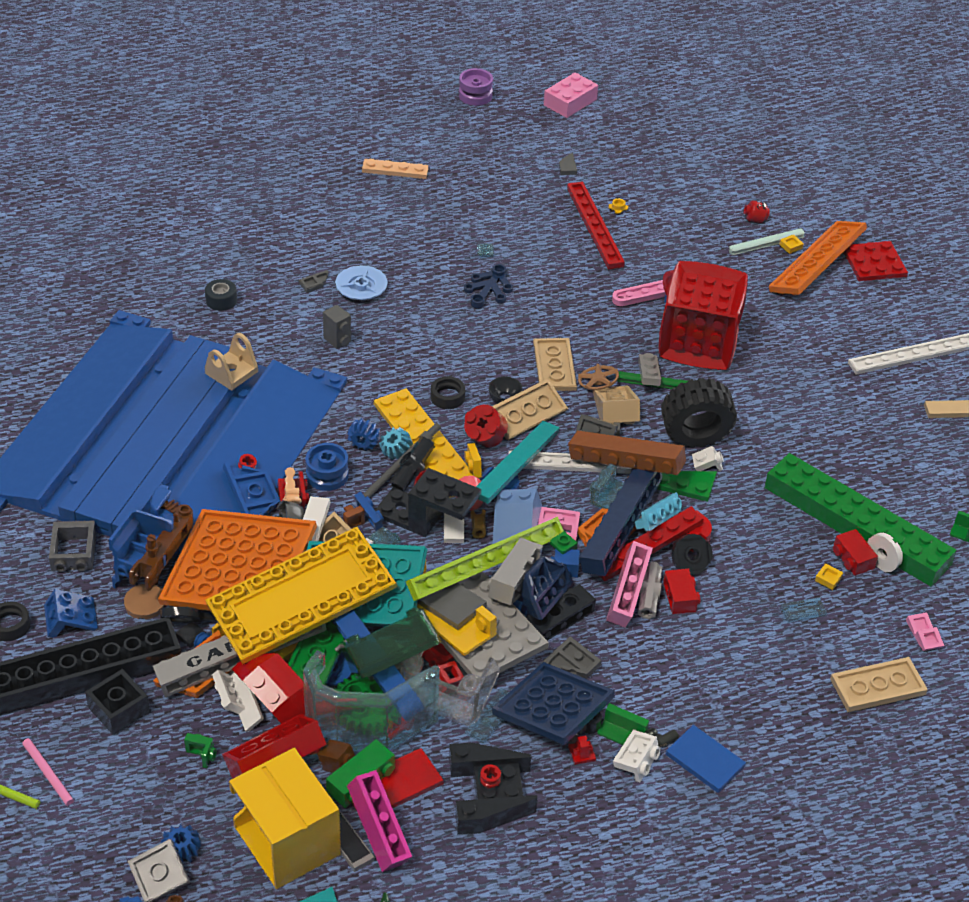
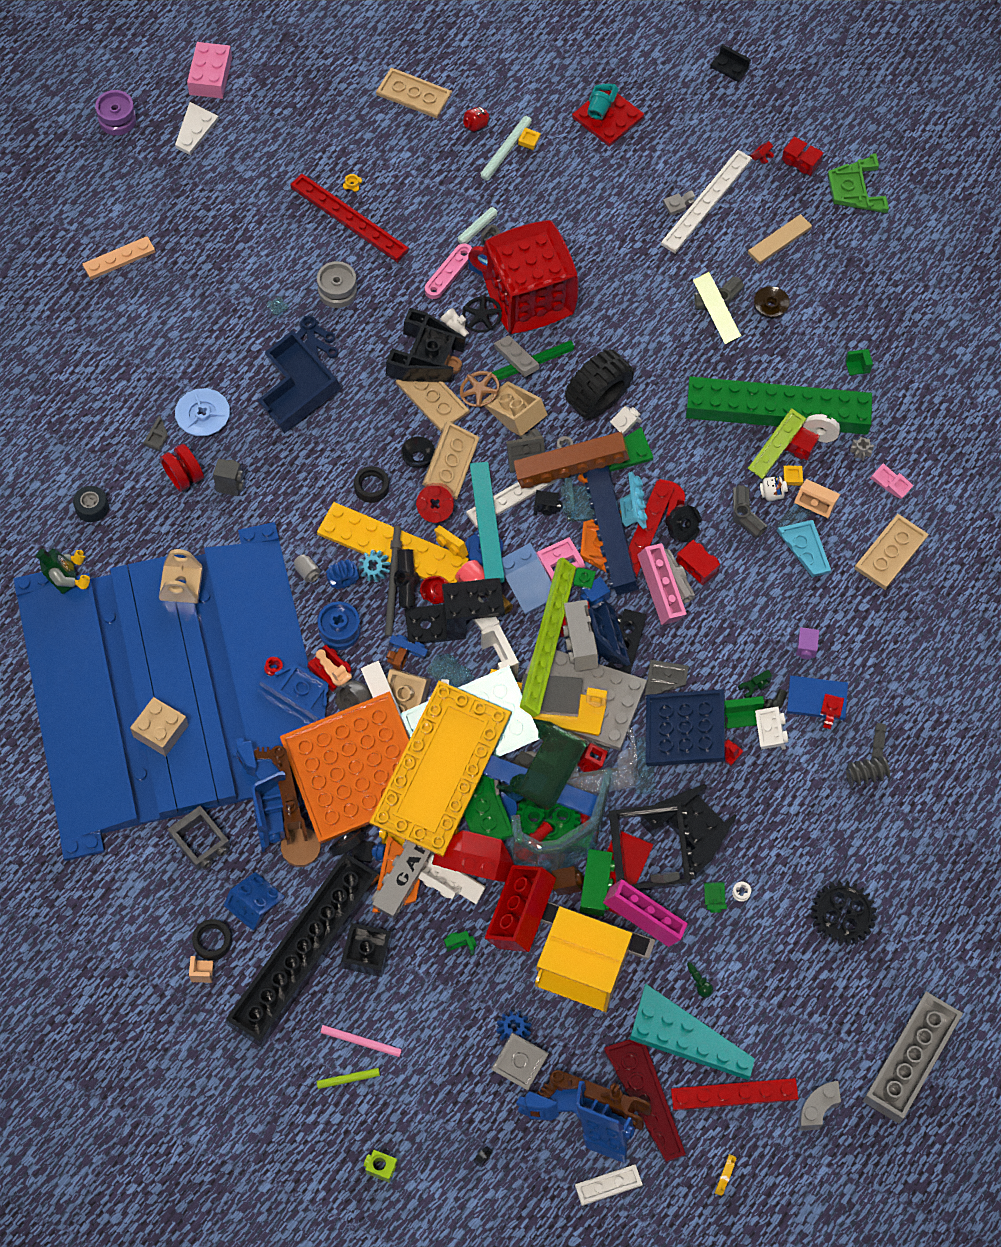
camera: 35 degrees left, 20 degrees up
(115, 446) = (159, 726): none -> tan brick
(152, 315) = (61, 570): none -> torso
(308, 303) = (181, 467): none -> red wheel
(341, 418) = (306, 568): none -> light grey brick
(407, 749) = (684, 833): none -> black window
(416, 794) = (665, 877): none -> dark grey tile
(442, 544) = (495, 637): none -> white panel
(452, 301) = (304, 385): none -> dark blue piece
(461, 856) = (714, 896): none -> green bracket
(490, 769) = (695, 817): red bush -> none
(492, 863) = (737, 887): none -> white bush
(527, 123) = (194, 128): none -> white wing
(543, 255) = (337, 284): none -> light grey wheel
(567, 165) = (271, 159): dark grey tile -> none
(573, 330) = (429, 352): none -> black wedge
(581, 477) = (546, 503): none -> black brick
(591, 352) = (456, 363): none -> medium nougat tile
(618, 325) = (455, 322): none -> white piece
(645, 333) = (482, 314): none -> black wheel
(657, 711) = (760, 682): none -> dark green plate
(701, 843) = (866, 770): none -> dark grey piece
(709, 771) = (832, 709): none -> red plate
(721, 177) = (414, 92): none -> tan tile
(731, 707) = (807, 643): none -> medium lavender brick
(737, 829) = (879, 740): none -> dark grey axle
(755, 579) = (742, 505): none -> dark grey piece
(795, 634) = (807, 546): none -> medium azure wing
(801, 575) = (773, 488): none -> white head
(817, 257) = (563, 142): orange plate -> none
(831, 541) = (777, 443): none -> lime tile
(836, 602) = (817, 498): none -> light nougat brick
(858, 421) = (716, 308): none -> tile
(870, 418) = (727, 292): none -> dark grey piece
(872, 242) = (600, 101): none -> teal piece
(887, 342) = (677, 204): none -> light grey plate
(914, 590) = (862, 448): none -> light grey gear
(916, 444) = (774, 296): none -> dark brown dish

